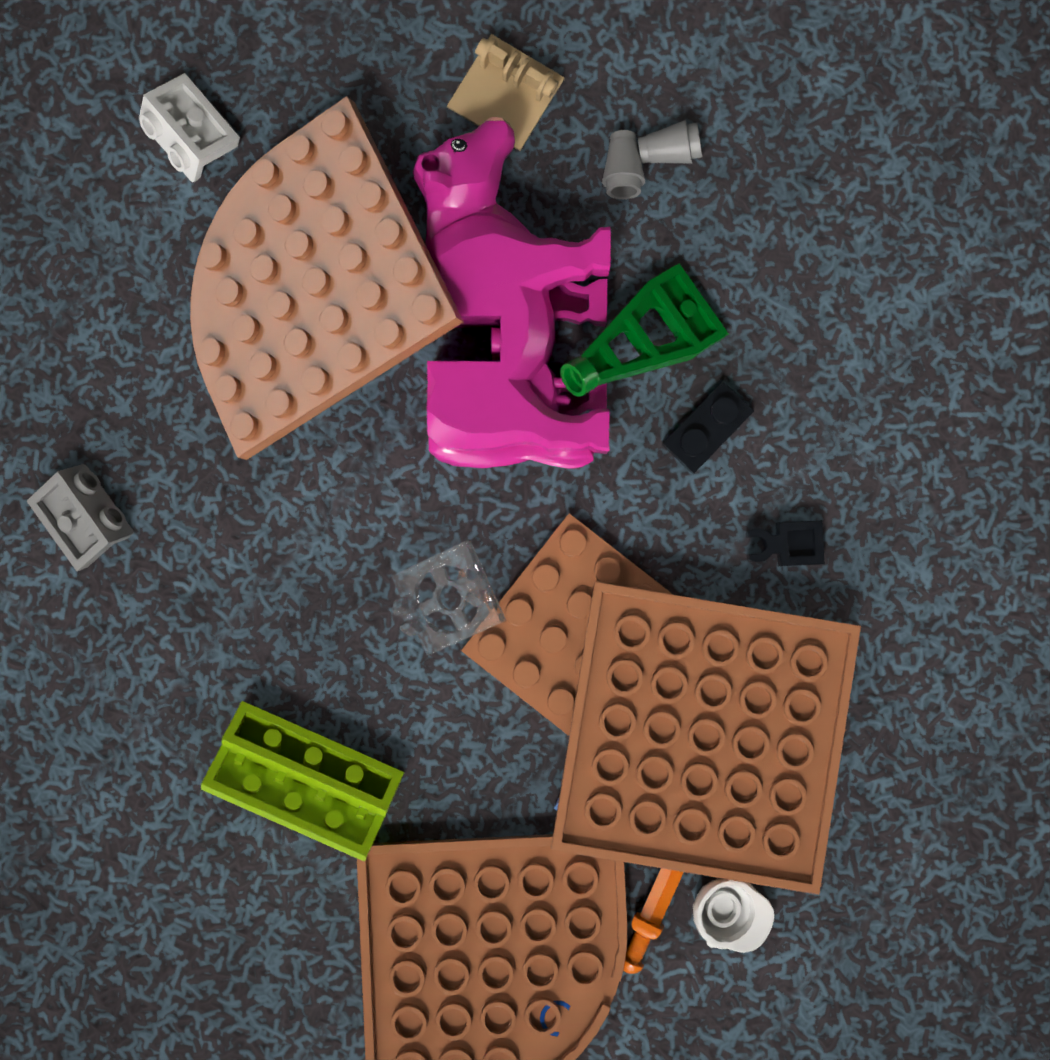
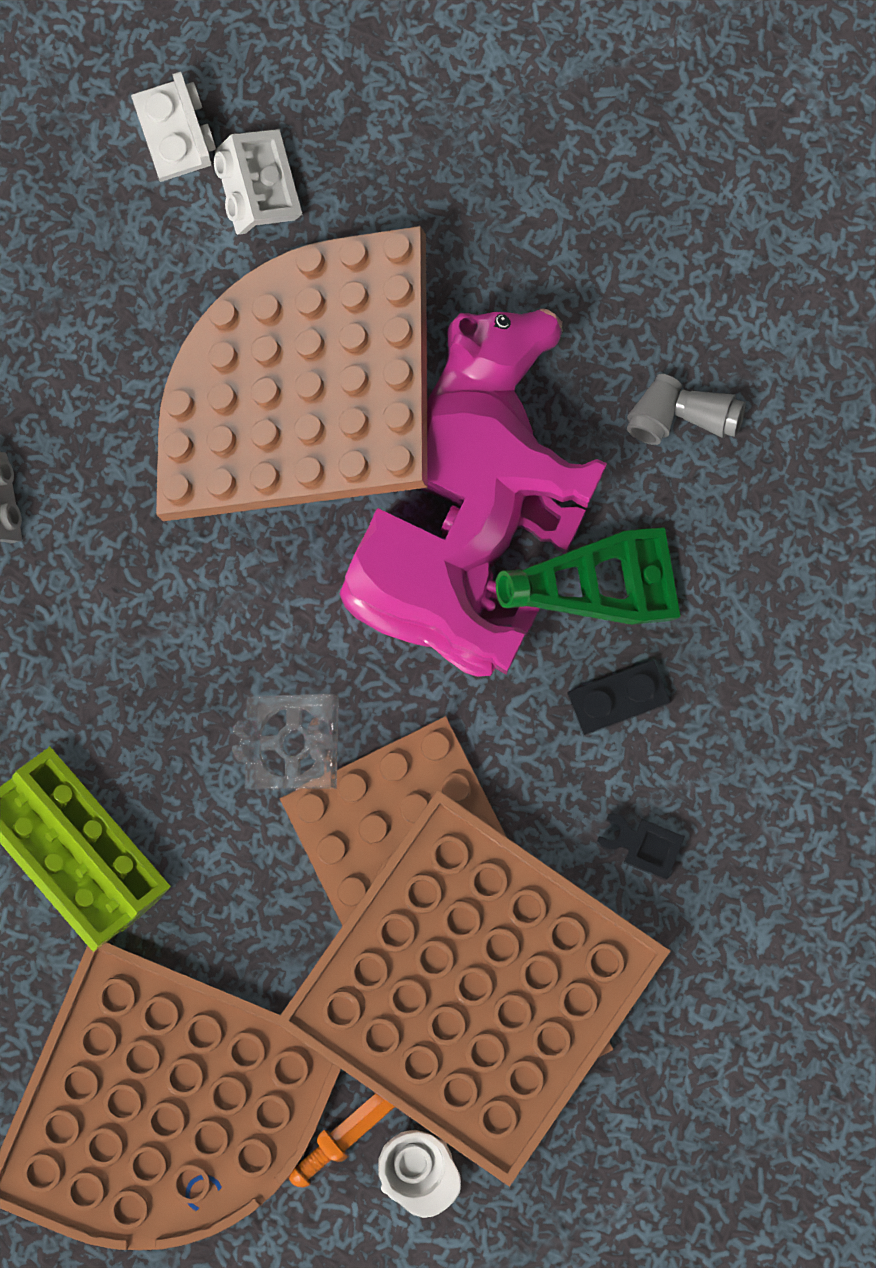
camera: 25 degrees right, 5 degrees down
(92, 116) = (173, 129): none -> white bracket
(507, 87) = (577, 285): tan hinge -> none

